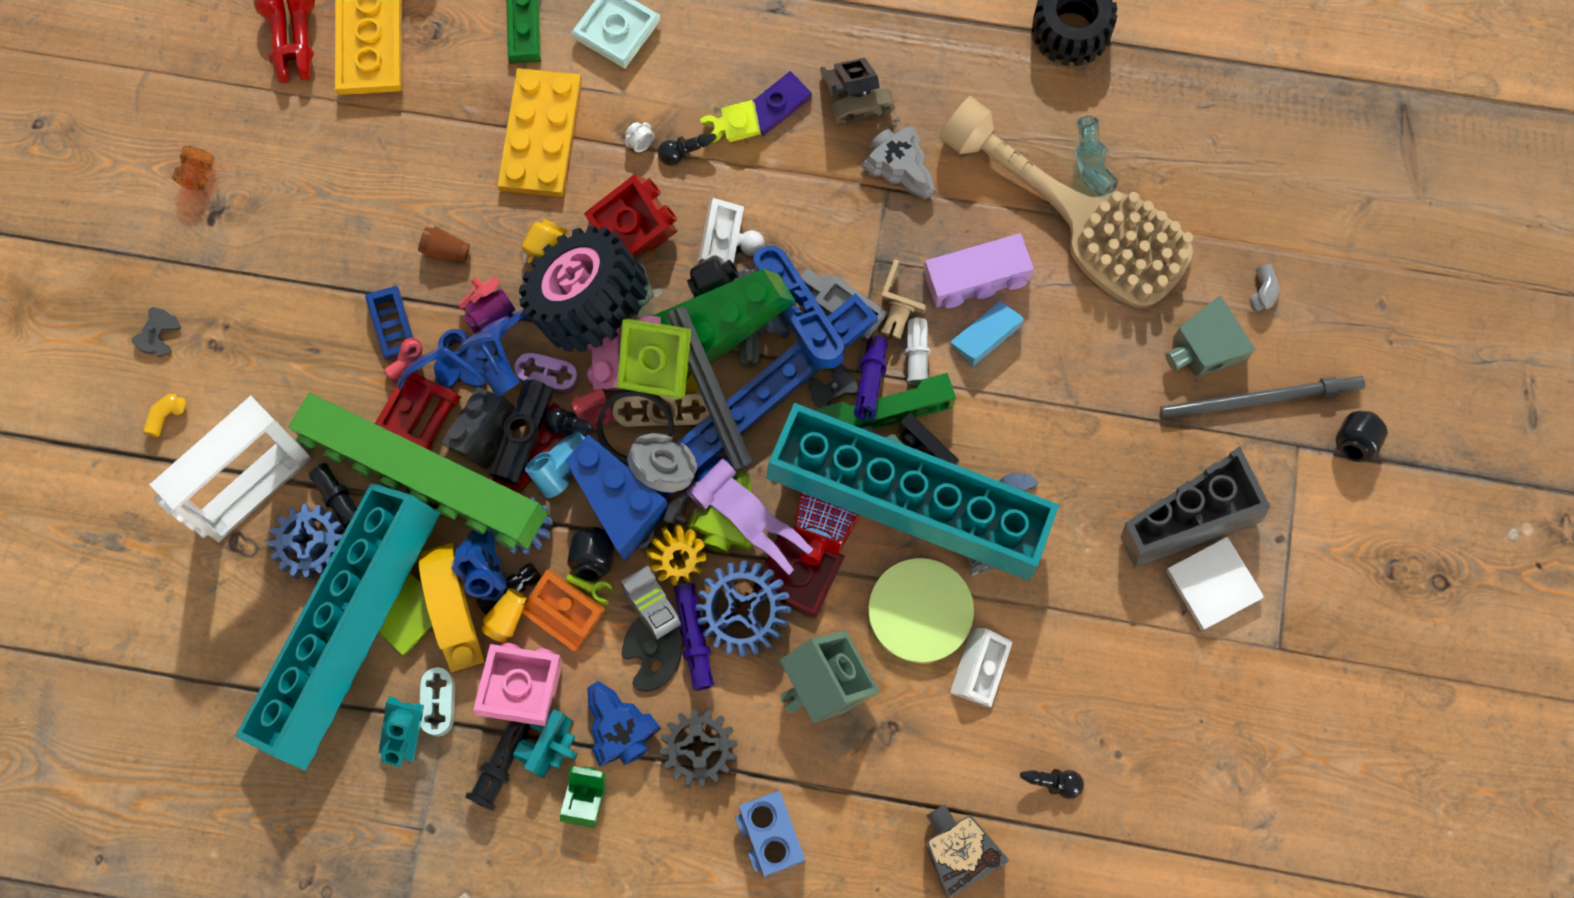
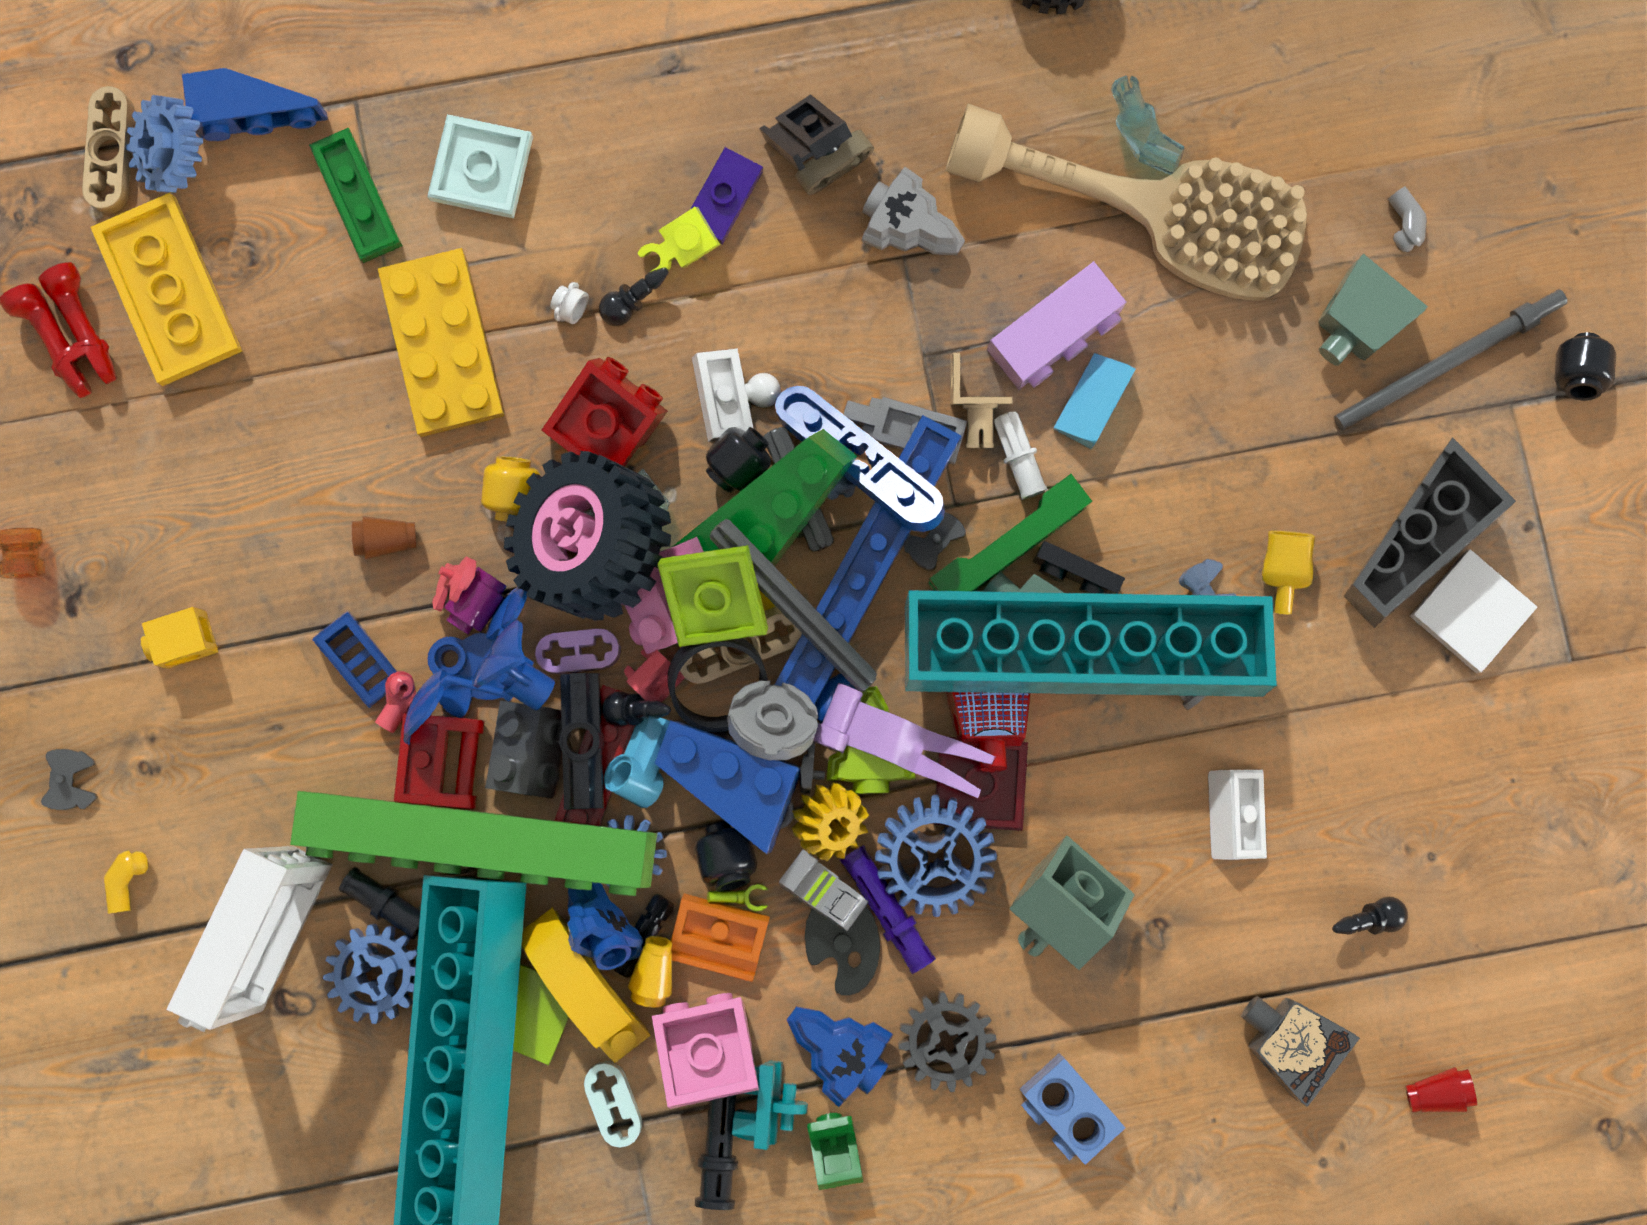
camera: 25 degrees left, 10 degrees up
(274, 262) = (178, 638): none -> yellow brick
(400, 731) = (587, 1161): teal hips -> none
(872, 370) = (977, 501): dark purple pin -> none
(921, 610) = (1143, 774): yellowish green tile -> none
(1085, 499) = (1288, 566): none -> yellow piece

